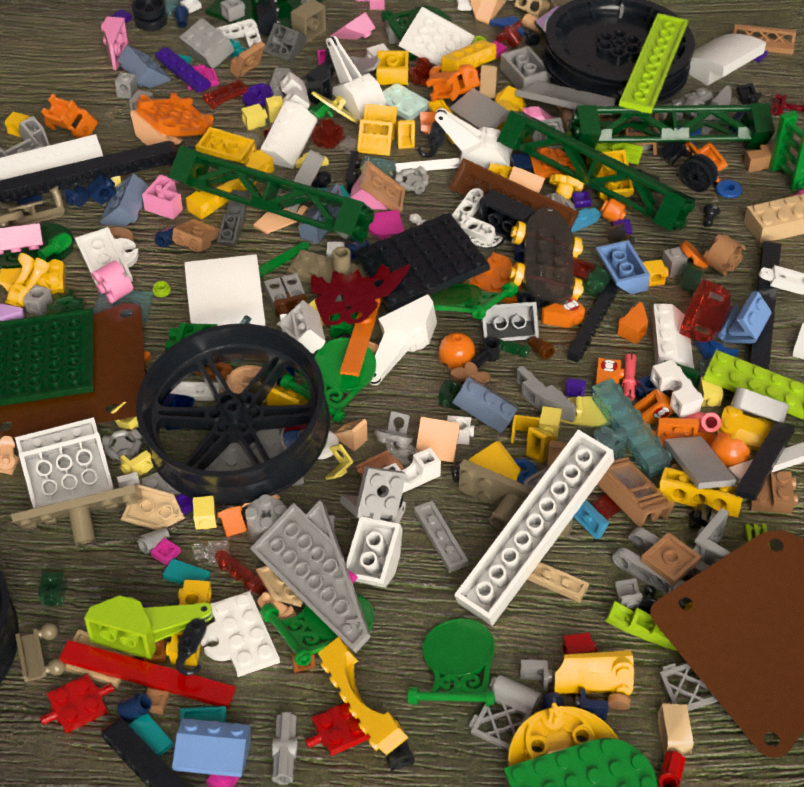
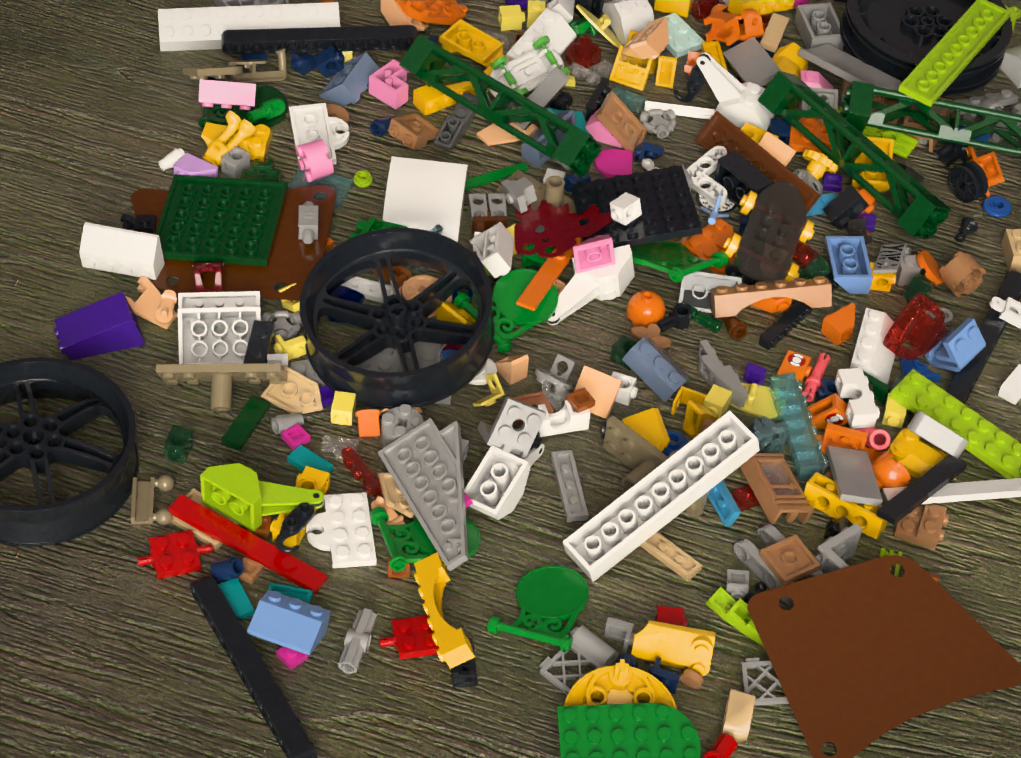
camera: 10 degrees right, 0 degrees up
(44, 403) = (216, 266): none -> dark red piece
(106, 468) = (259, 342): none -> black plate
(113, 550) = (245, 423): none -> dark green tile
(122, 341) = (308, 222): none -> light grey piece
(284, 158) = (529, 69): none -> white piece
(310, 270) = (519, 193): none -> light grey brick
(341, 153) = (579, 71): none -> clear plate
(385, 109) = (649, 41): none -> light nougat wedge
(400, 309) = (594, 253): none -> bright pink slope
(412, 206) = (649, 150): none -> dark blue bracket
(414, 262) = (625, 208): none -> white brick
(428, 451) = (580, 400): none -> dark orange tile
(490, 251) = (714, 213): none -> light blue plant
(533, 324) = (731, 300): none -> arch
(602, 218) = (845, 206): none -> black hinge
(658, 254) = (890, 257): none -> light grey door

